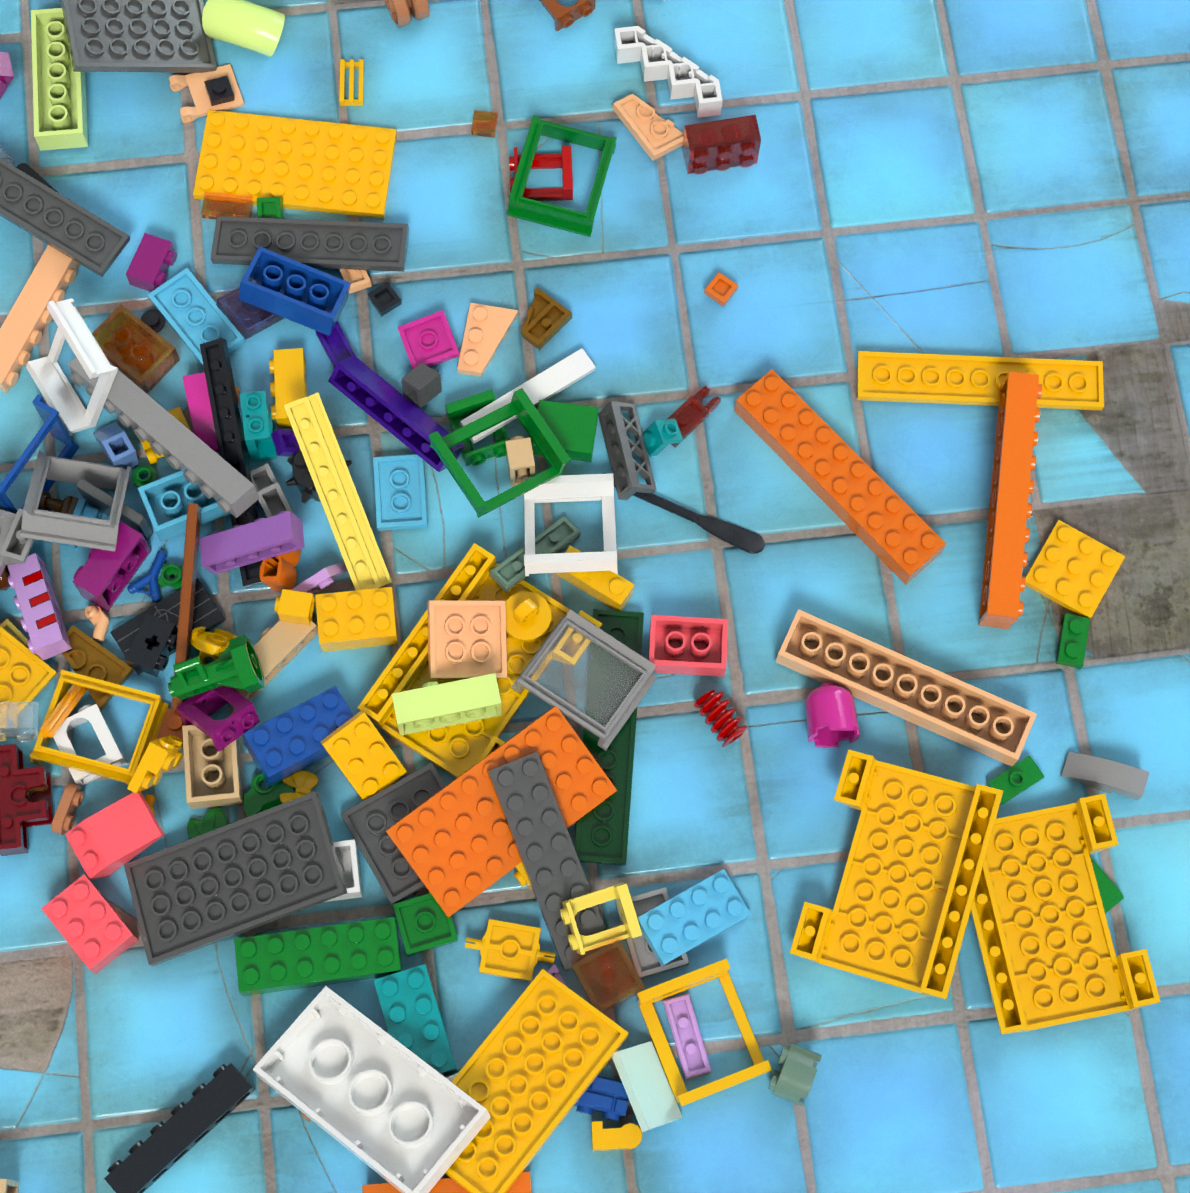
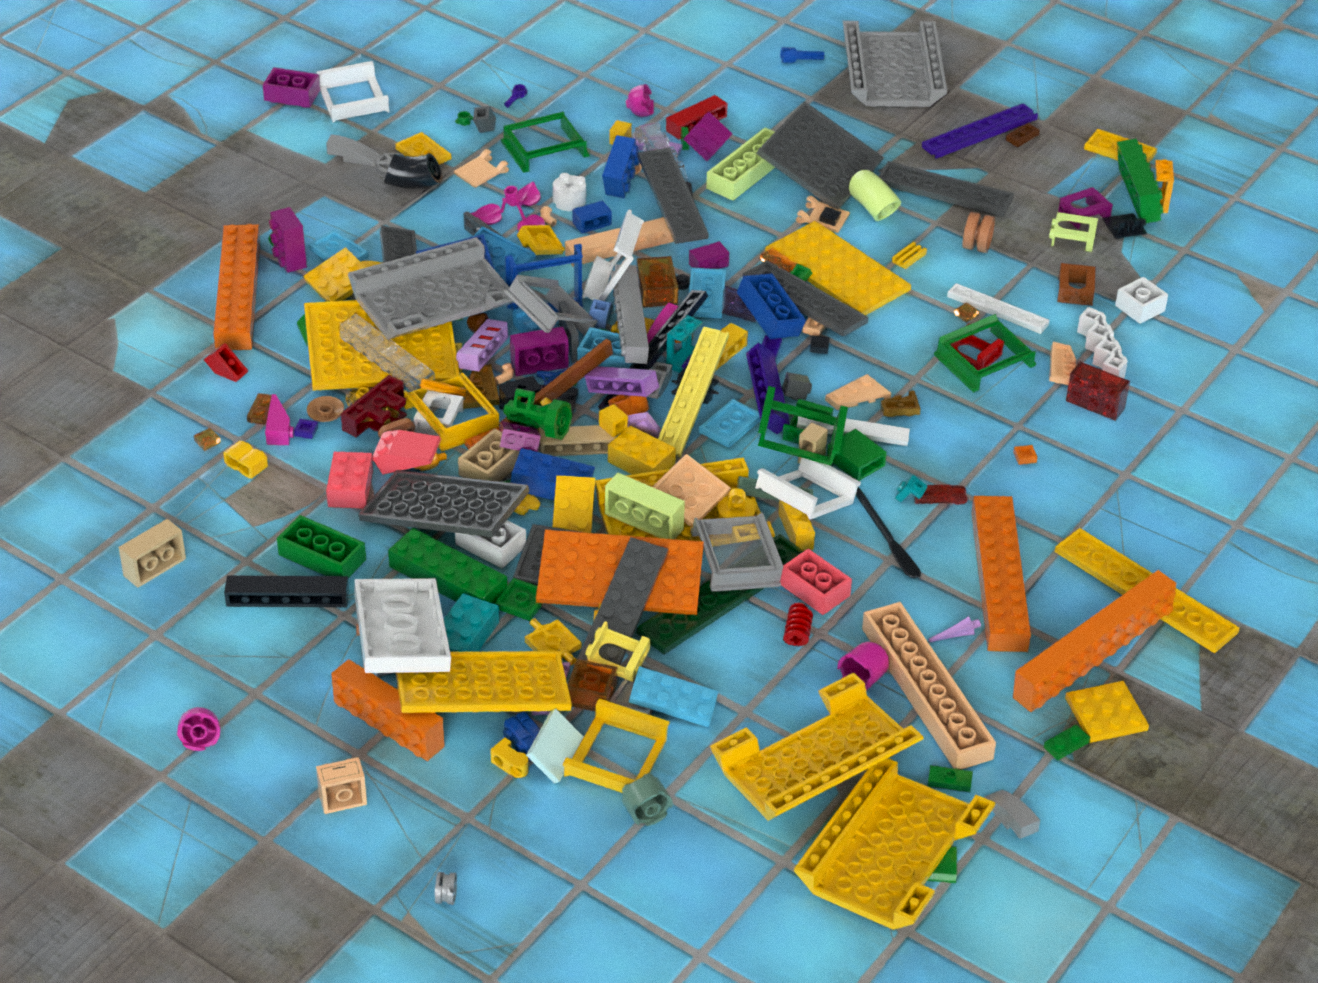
camera: 45 degrees right, 30 degrees down
(158, 758) = (461, 432): yellow plate -> none
(161, 1048) = (321, 548): none -> green brick
(429, 340) = (825, 373): dark pink plate -> none
(510, 91) = (1000, 308): none -> white tile
(621, 447) = (882, 476): dark grey fence -> none
(686, 1036) = (608, 747): lavender tile -> none
(865, 577) = (963, 628): none -> lavender piece

